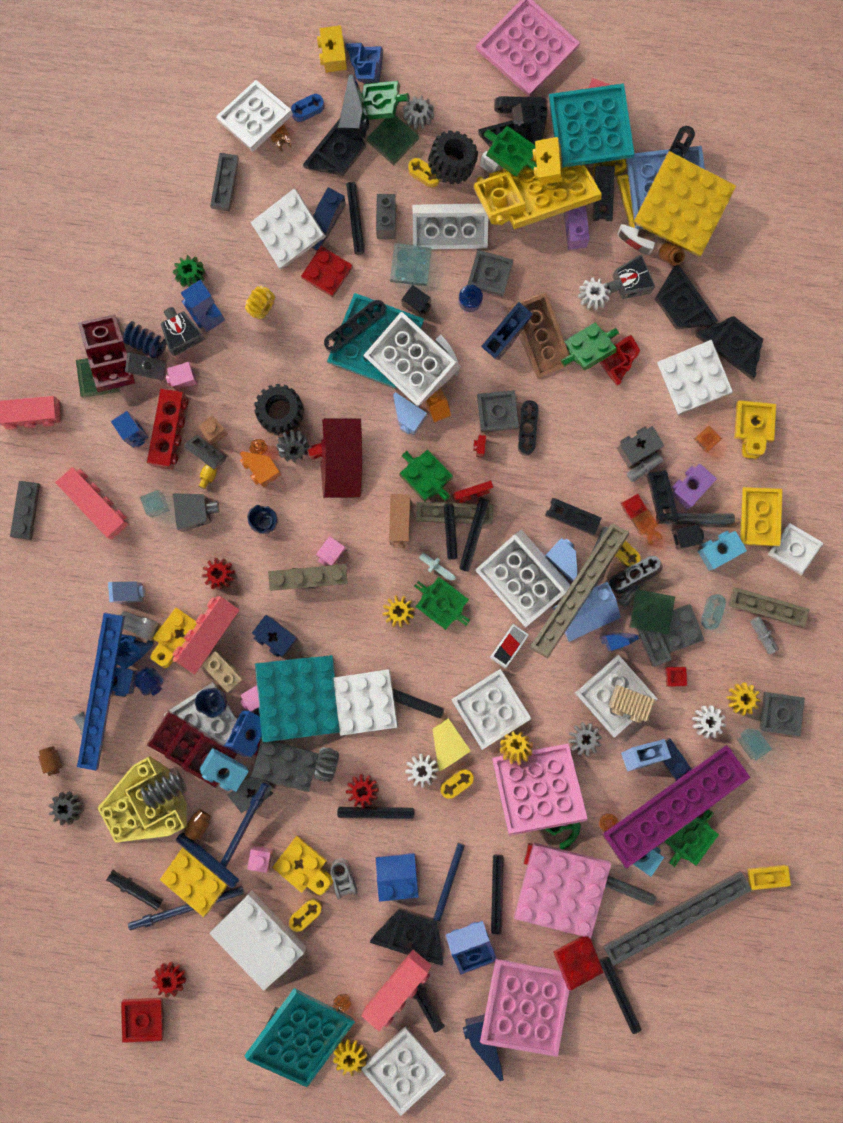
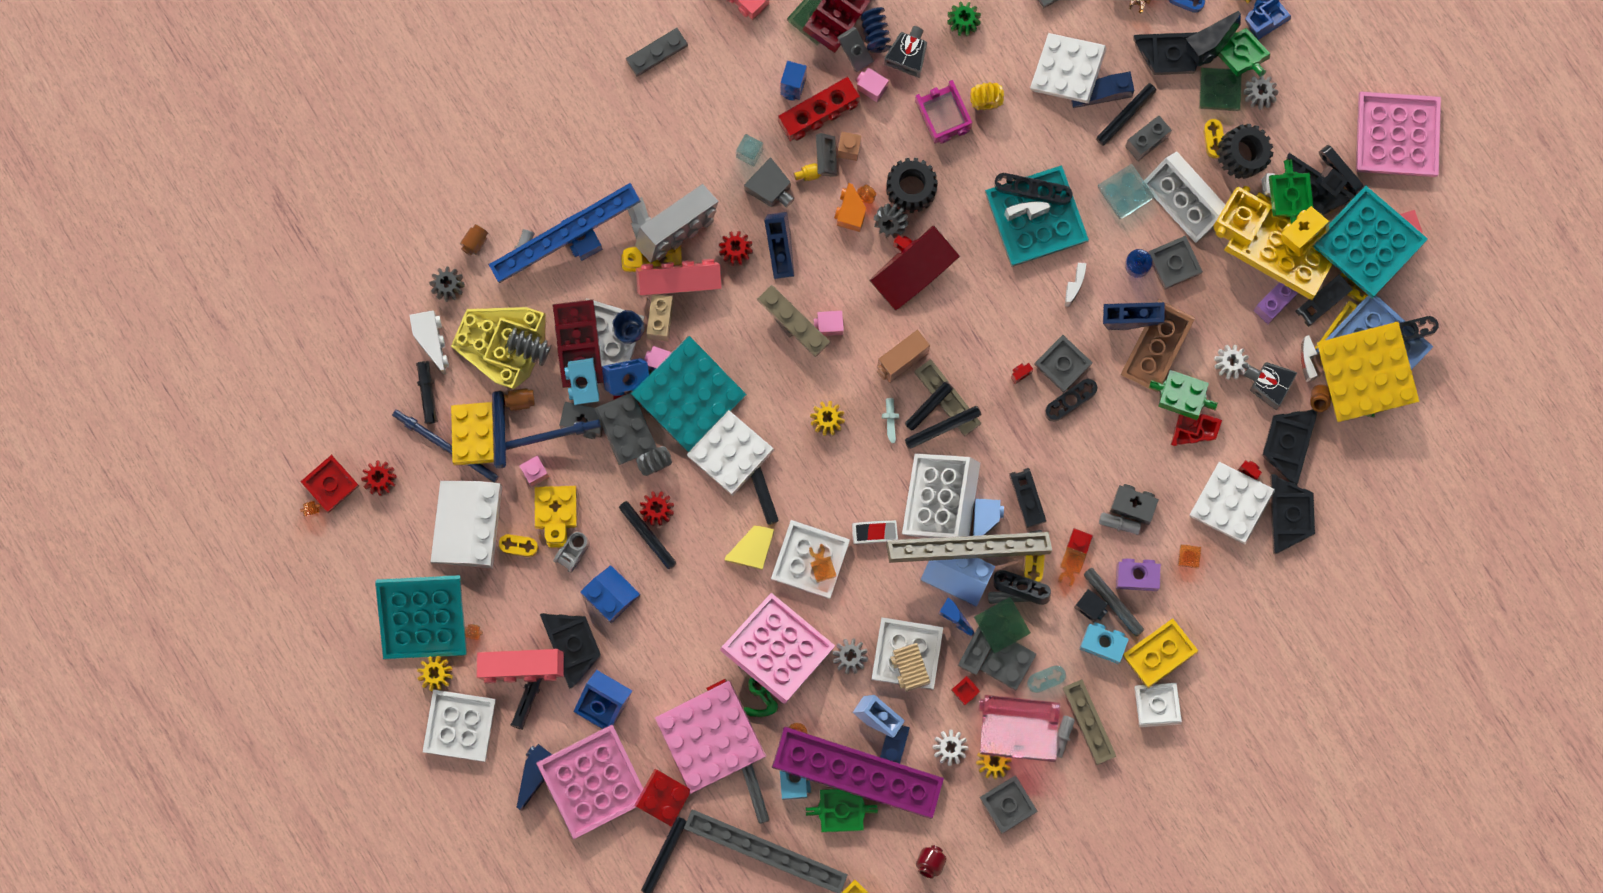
camera: 50 degrees right, 5 degrees down
(91, 854) = (426, 332): none -> white slope
(92, 503) = (708, 100): coral brick -> none
(126, 592) = (659, 187): light blue slope -> none
(131, 650) = (615, 231): blue slope -> none
(148, 1050) = (310, 508): none -> clear orange plate
(149, 681) = (602, 265): clear blue head -> none
(164, 603) = (677, 223): none -> light grey brick
(201, 306) = (941, 54): blue arch -> none
(242, 540) = (779, 244): none -> dark blue slope
(246, 343) = (944, 113): none -> window
(262, 519) = (809, 246): dark blue hair -> none
(285, 637) = (722, 347): dark blue brick -> none
(326, 271) = (1061, 128): red plate -> none
(368, 340) = (1032, 209): none -> white slope
(408, 415) = (996, 293): light blue slope -> none
(411, 360) = (1043, 256): white slope -> none
(415, 773) = (719, 546): white gear -> none
(416, 301) = (1098, 222): black brick -> none
(426, 475) = (958, 348): green plate -> none
(438, 406) = (1028, 303): orange slope -> none
(442, 603) = (864, 448): green plate -> none
(449, 881) = (640, 640): dark blue bar -> none
(453, 780) = (727, 577): yellow beam -> none
(480, 489) = (983, 400): red plate -> none
(497, 894) = (663, 687): black axle -> none
(505, 705) = (822, 567): none -> clear orange plate
(523, 745) = (795, 603): yellow gear -> none
(662, 496) = (1107, 556): black plate -> none
(681, 344) = (1250, 469): none -> red plate
(733, 659) = (1019, 728): none -> clear pink door
(753, 436) = (1224, 591): yellow plate -> none
(753, 743) = (963, 799): clear light blue brick -> none
(780, 804) = (931, 861): none -> dark red head

